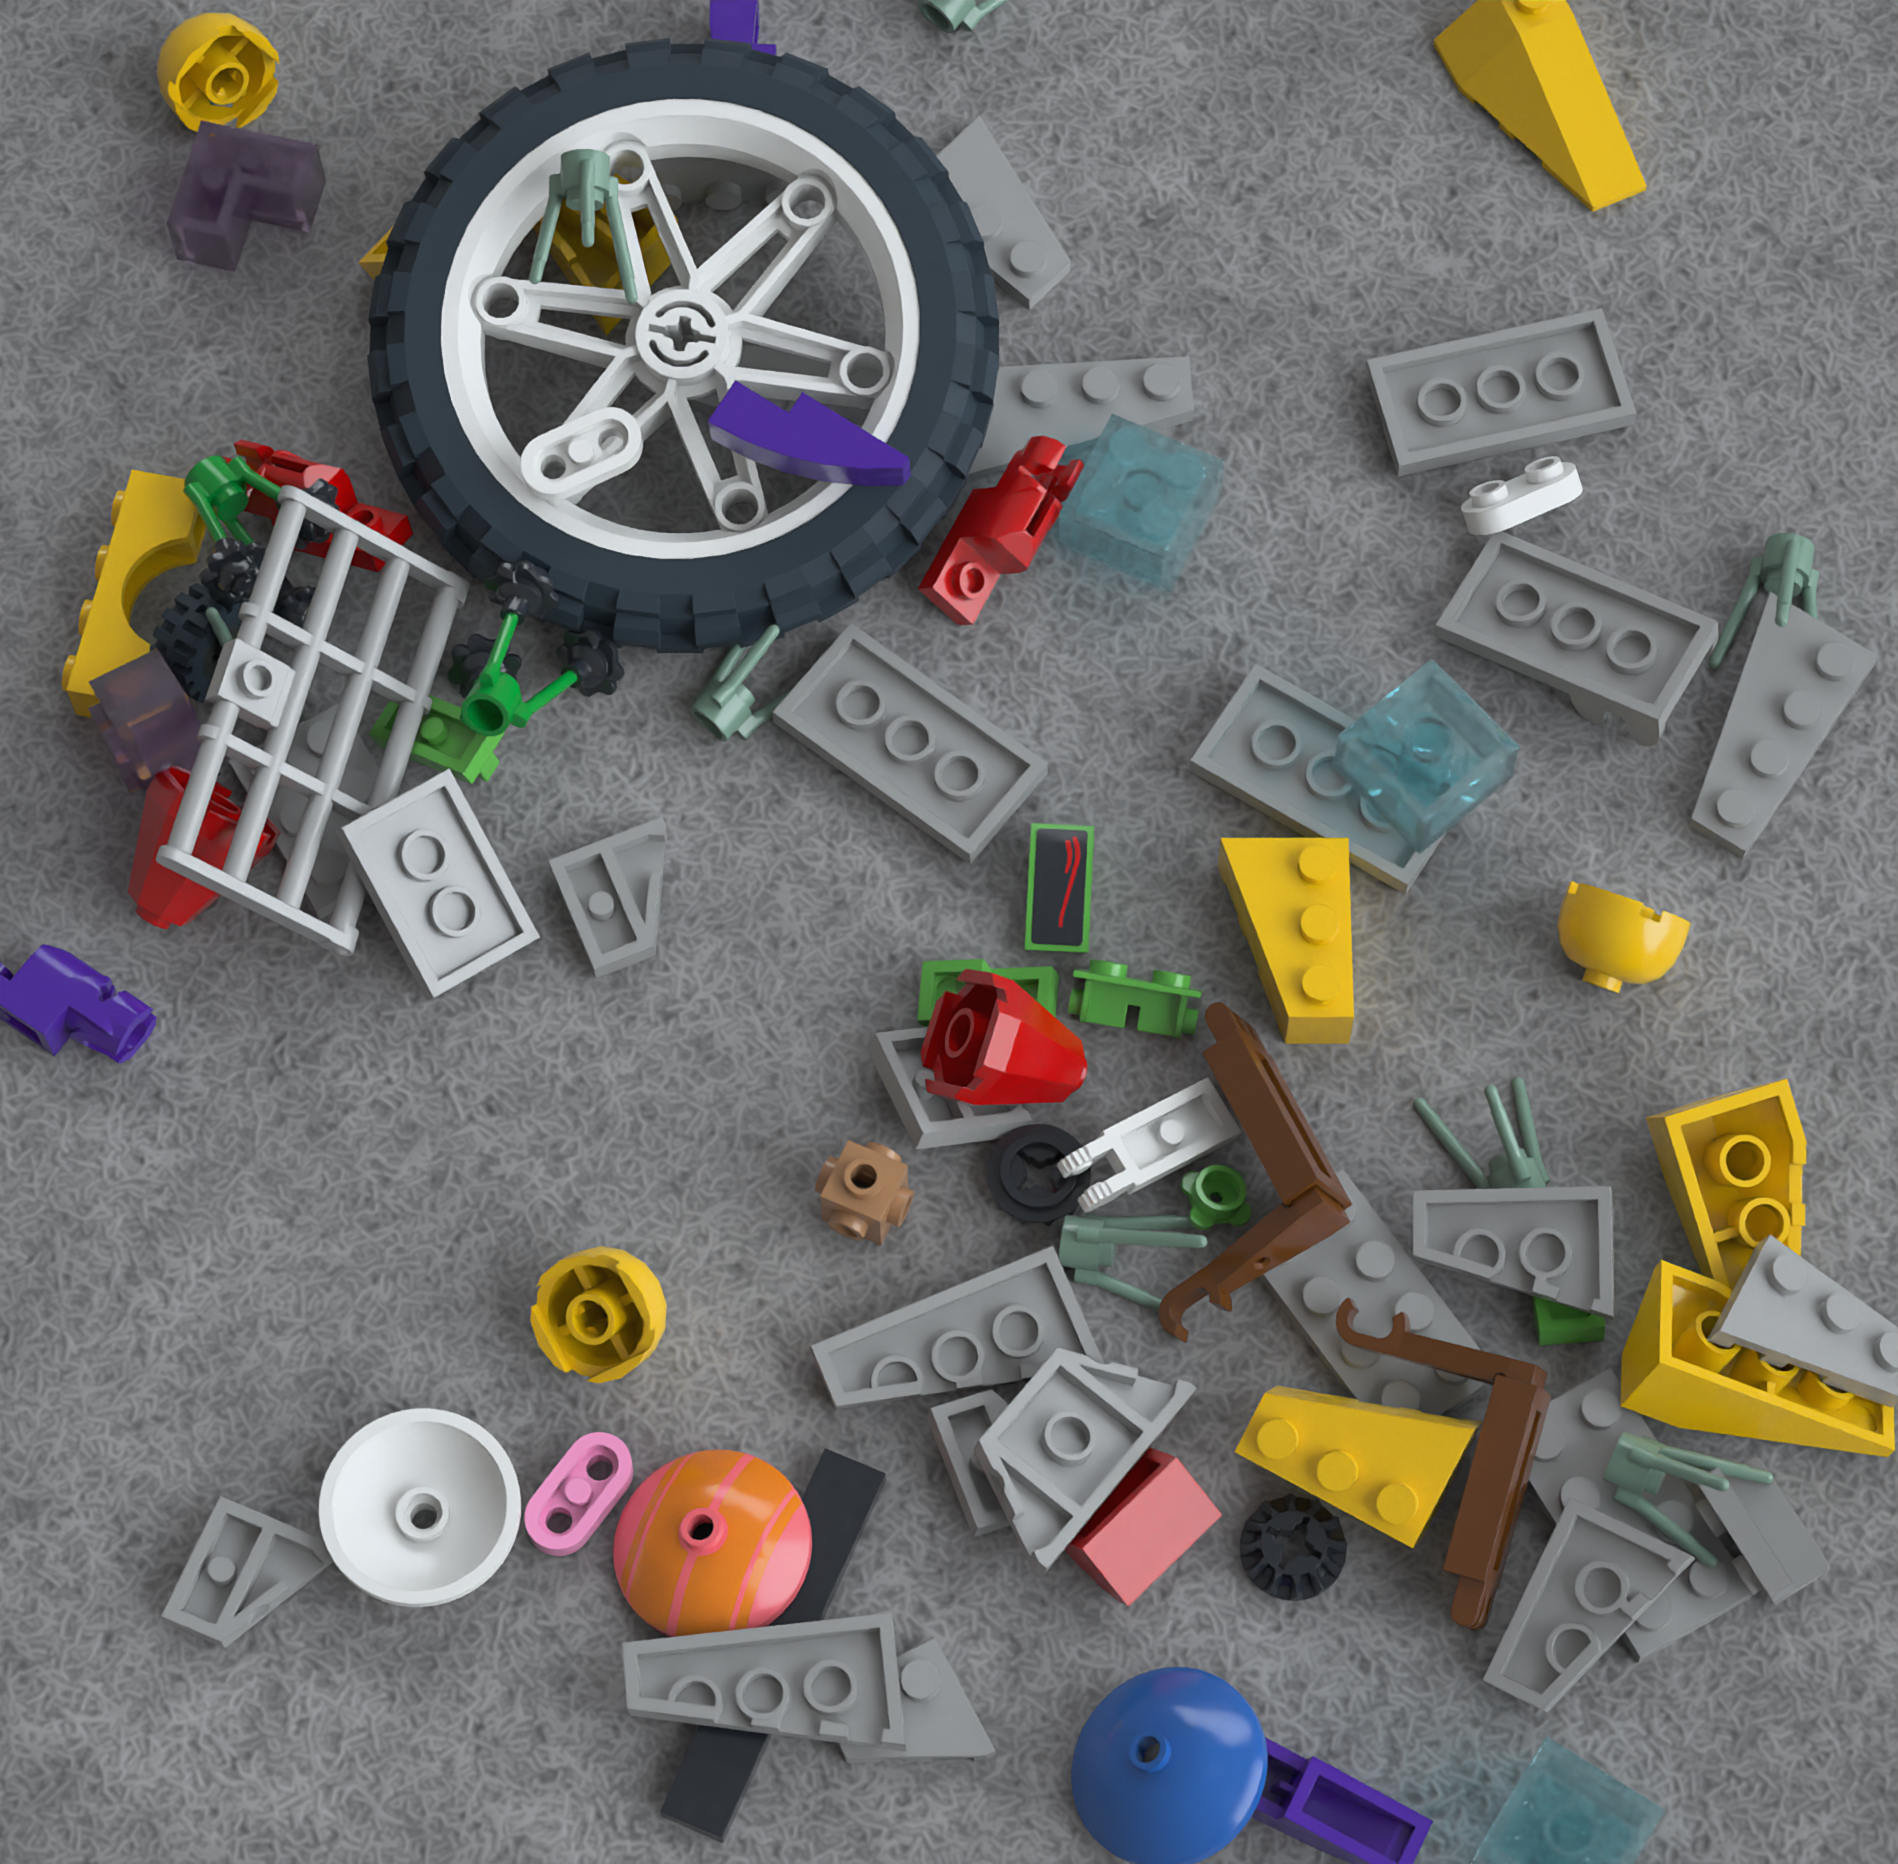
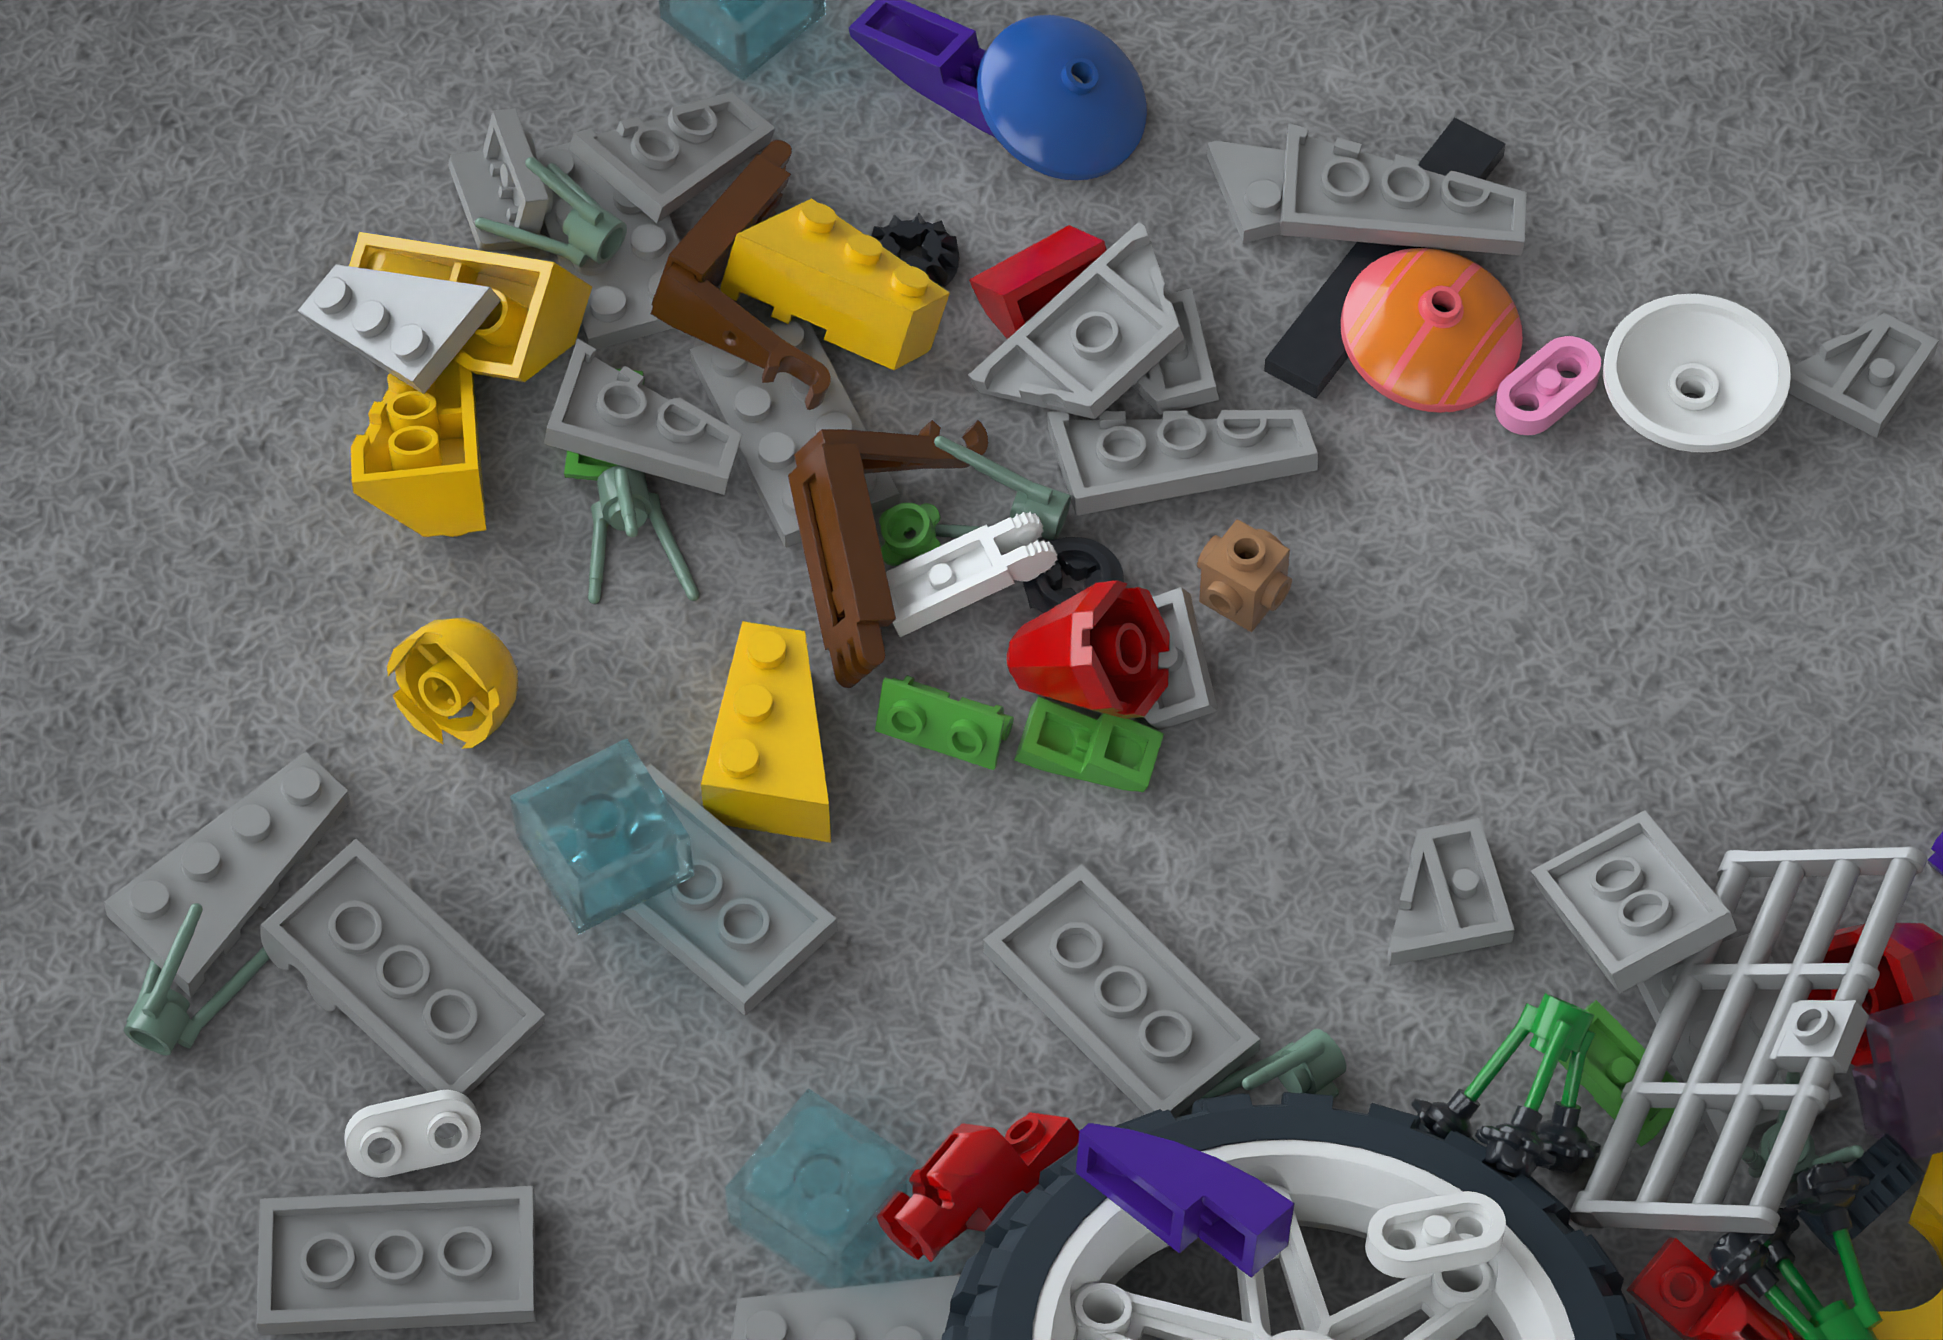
camera: 170 degrees left, 10 degrees down
(599, 1313) = (1507, 506): yellow cylinder -> none
(1059, 887) = (996, 831): black slope -> none

